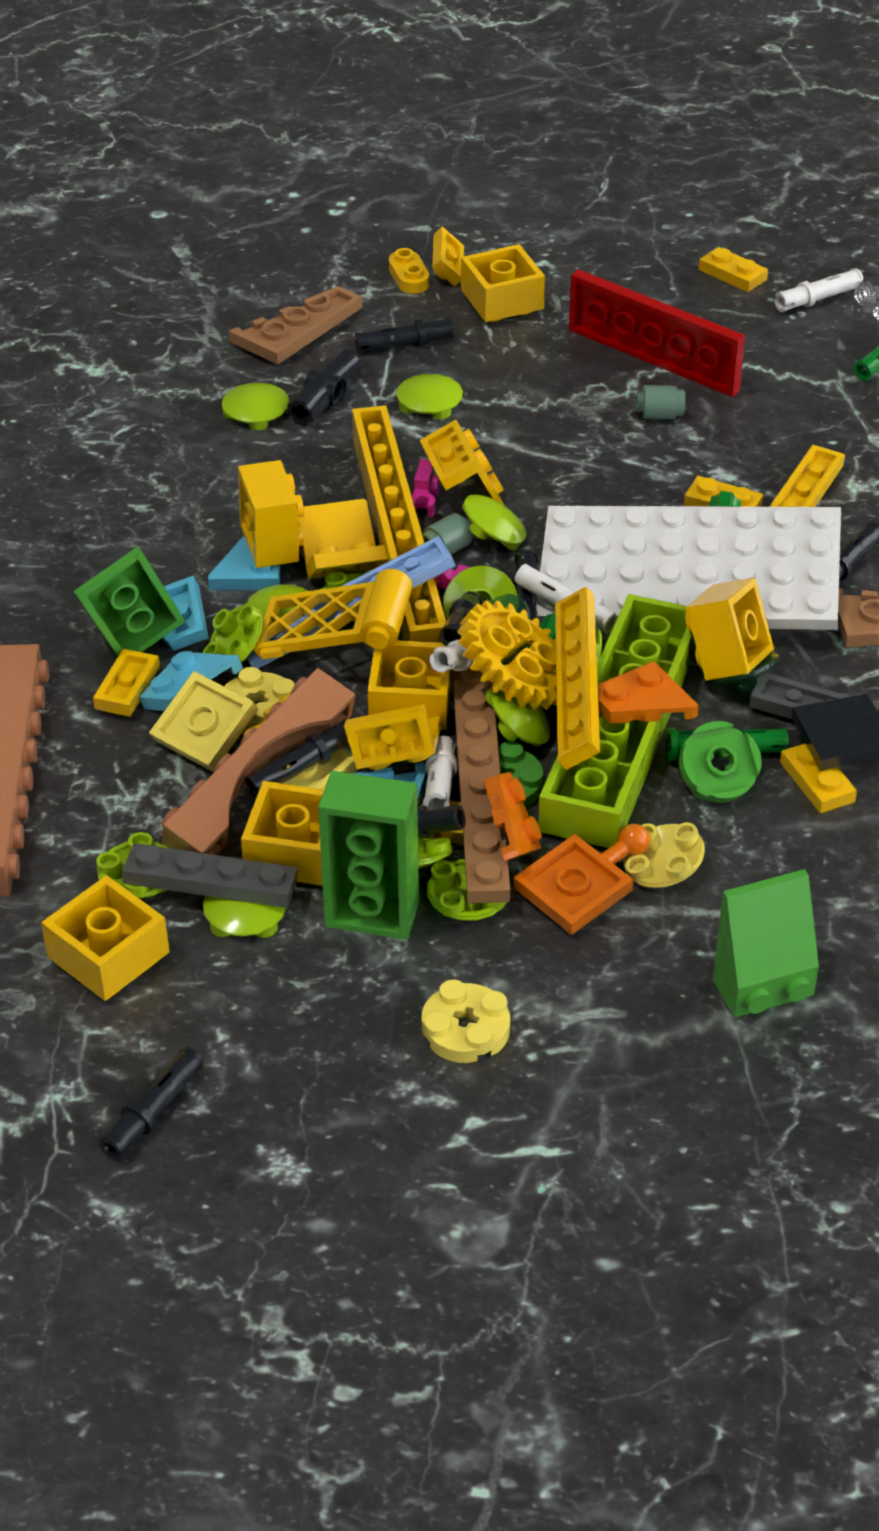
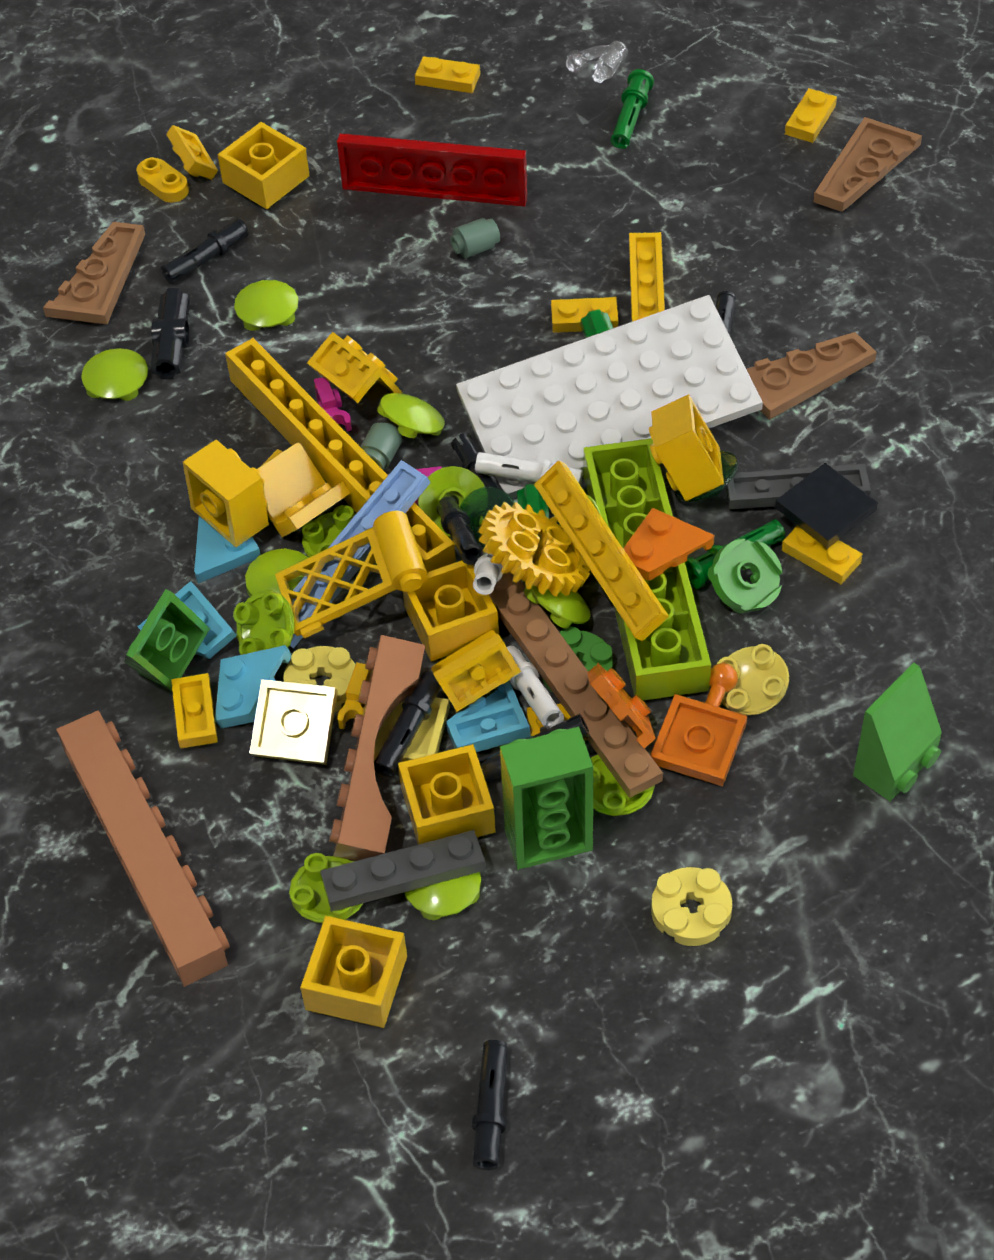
camera: 25 degrees left, 10 degrees up
(808, 293) = (528, 78): white pin -> none

